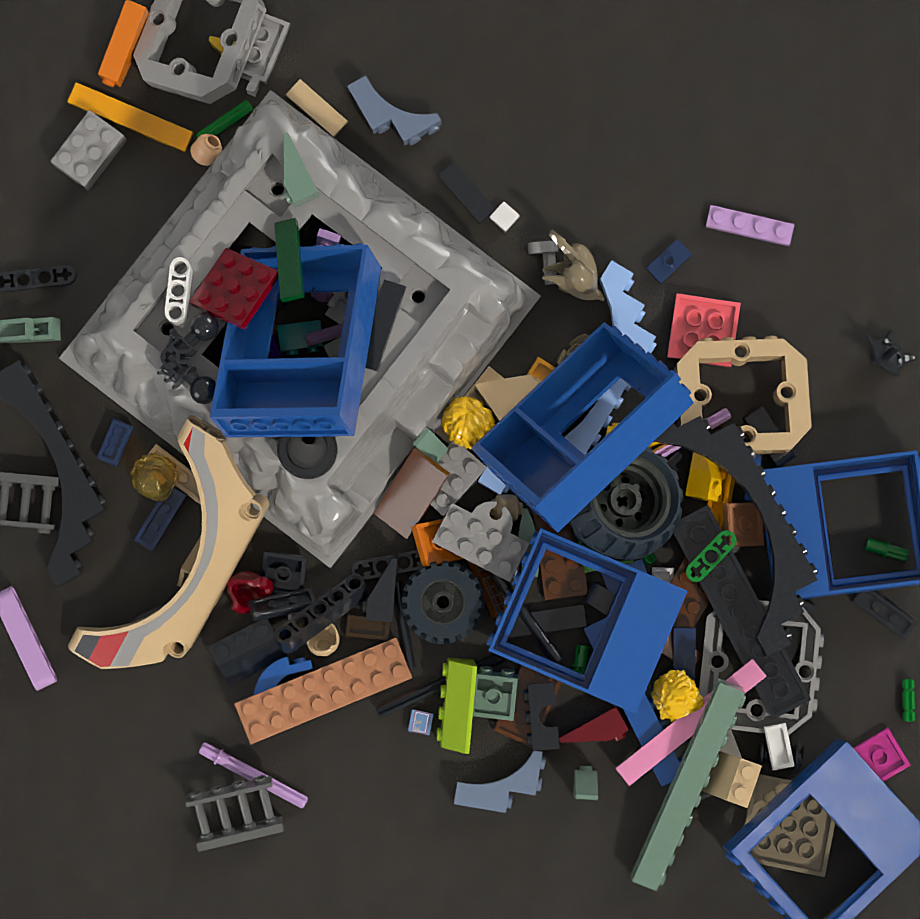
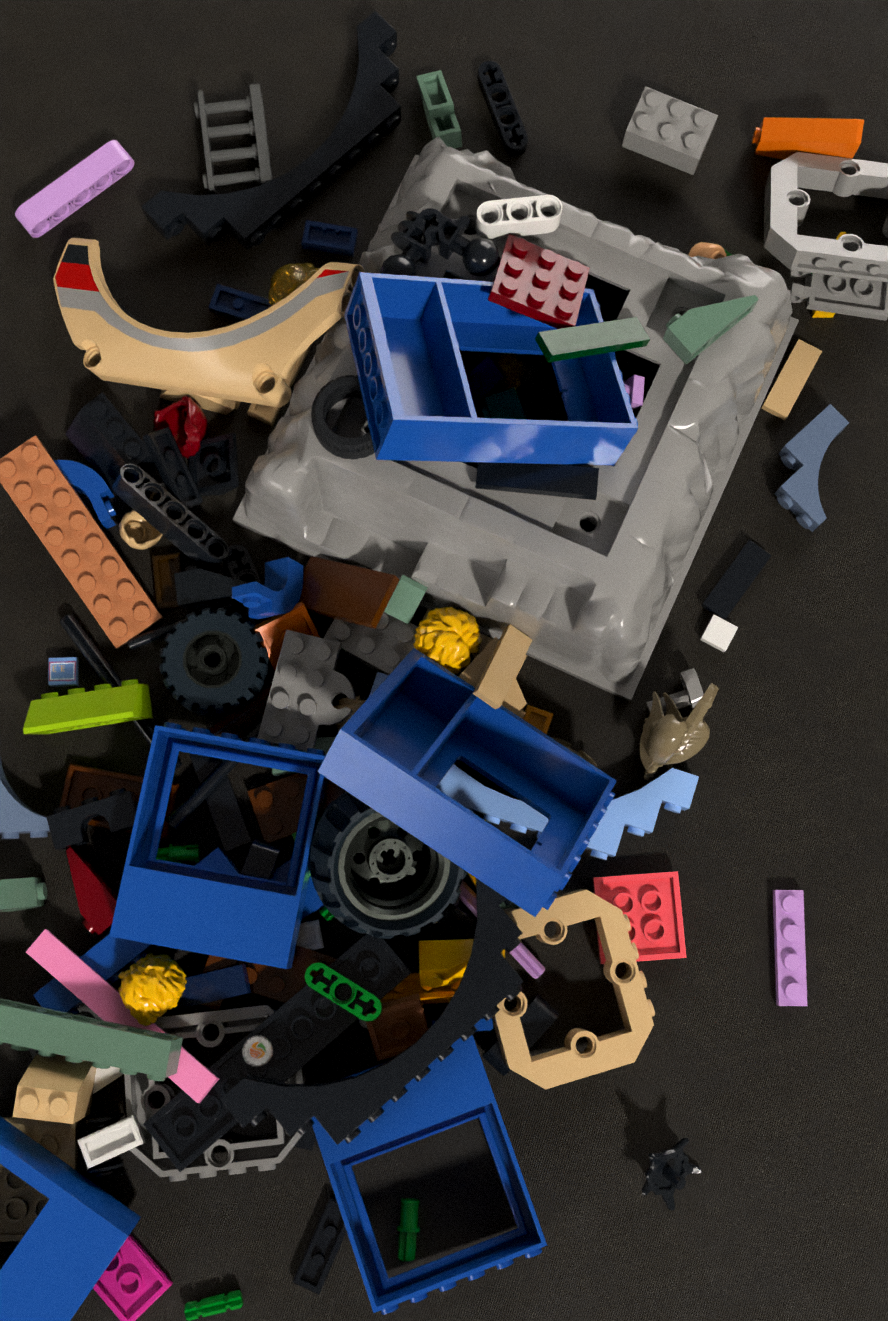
camera: 70 degrees right, 5 degrees down
(130, 117) = (721, 171): light orange tile -> none
(399, 541) = (277, 595): none -> blue arch
(495, 693) = (113, 752): sand green plate -> none
(501, 385) = (502, 667): none -> tan tile
(669, 261) = (716, 852): dark blue plate -> none
(739, 627) = (257, 1050): none -> clear tile

